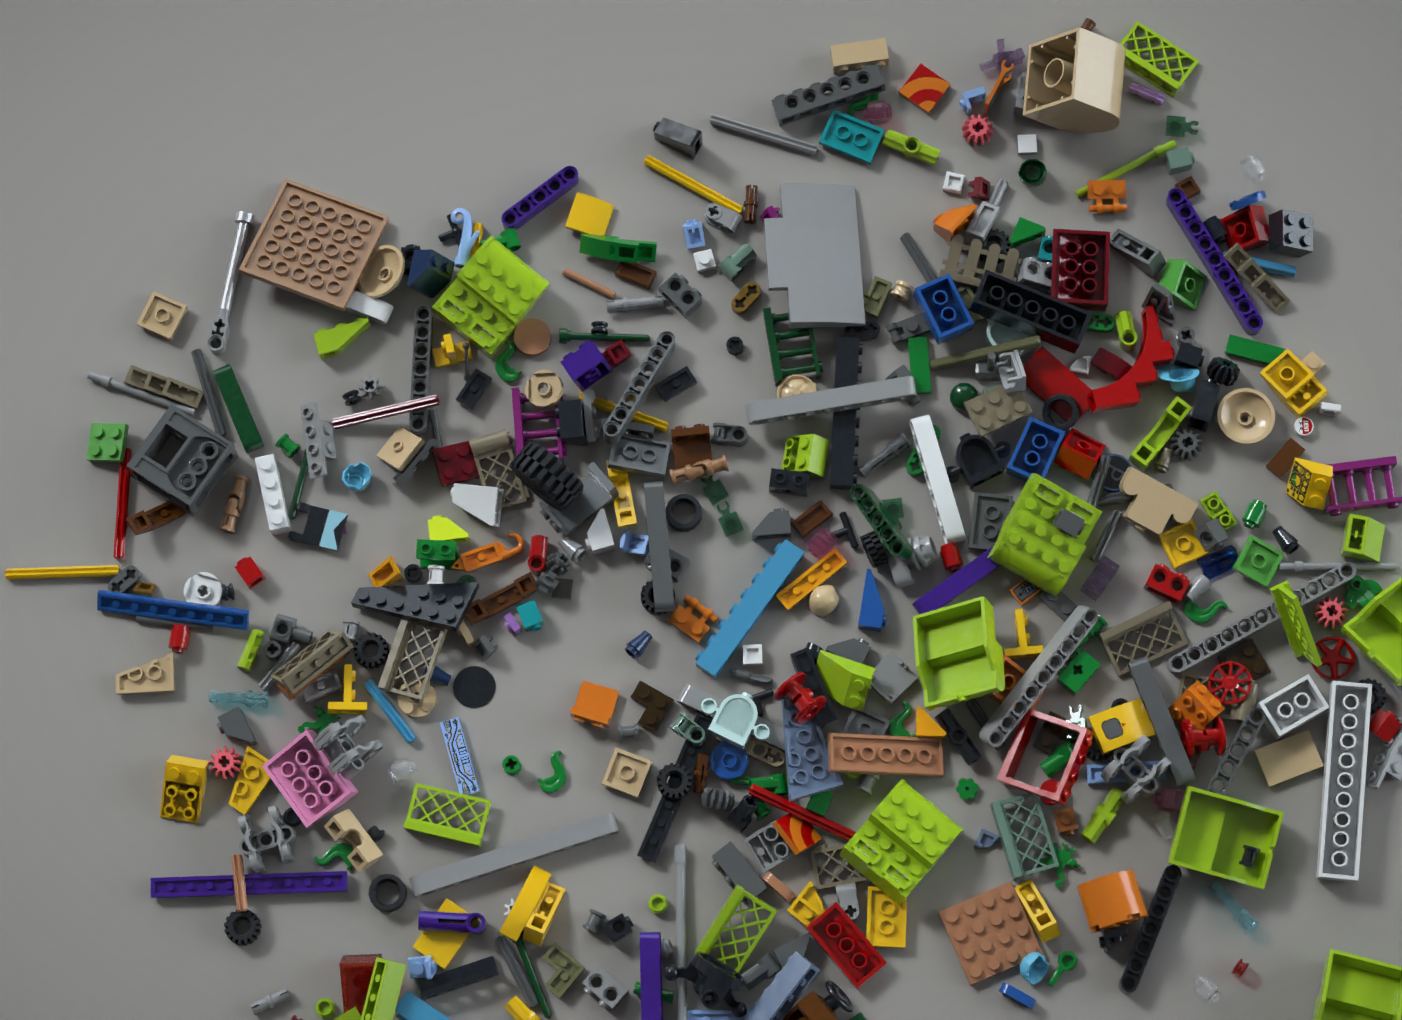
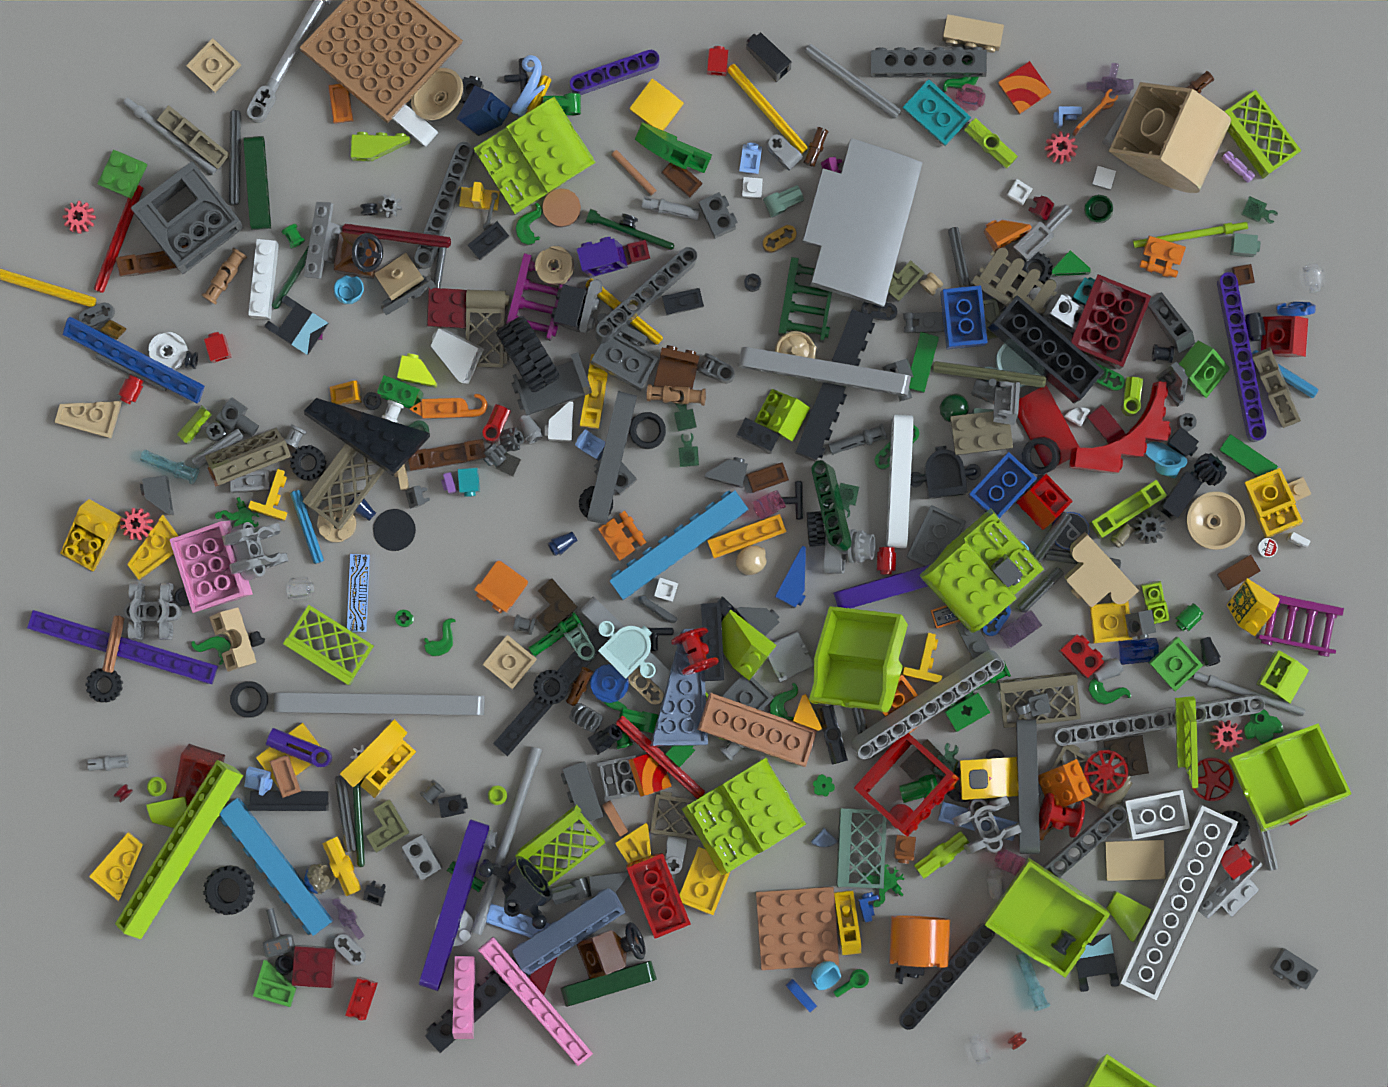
camera: 15 degrees right, 10 degrees up
(76, 502) = (86, 217): none -> coral gear
(293, 311) = (340, 104): none -> orange tile
(355, 441) = (358, 255): none -> piece
(447, 954) = (285, 776): none -> nougat tile
(632, 157) = (717, 61): none -> red brick
(661, 733) = (555, 635): none -> green pin
(1049, 891) = (867, 910): none -> blue bracket
(1079, 579) = (1000, 622): none -> blue beam
(1139, 282) = (1162, 353): none -> black bush
(1141, 642) = (1037, 705): none -> dark grey plate
(1287, 866) = (1097, 960): none -> black flag
(1291, 233) = (1325, 355): black brick -> none
(1301, 811) = (1128, 914): none -> lime slope

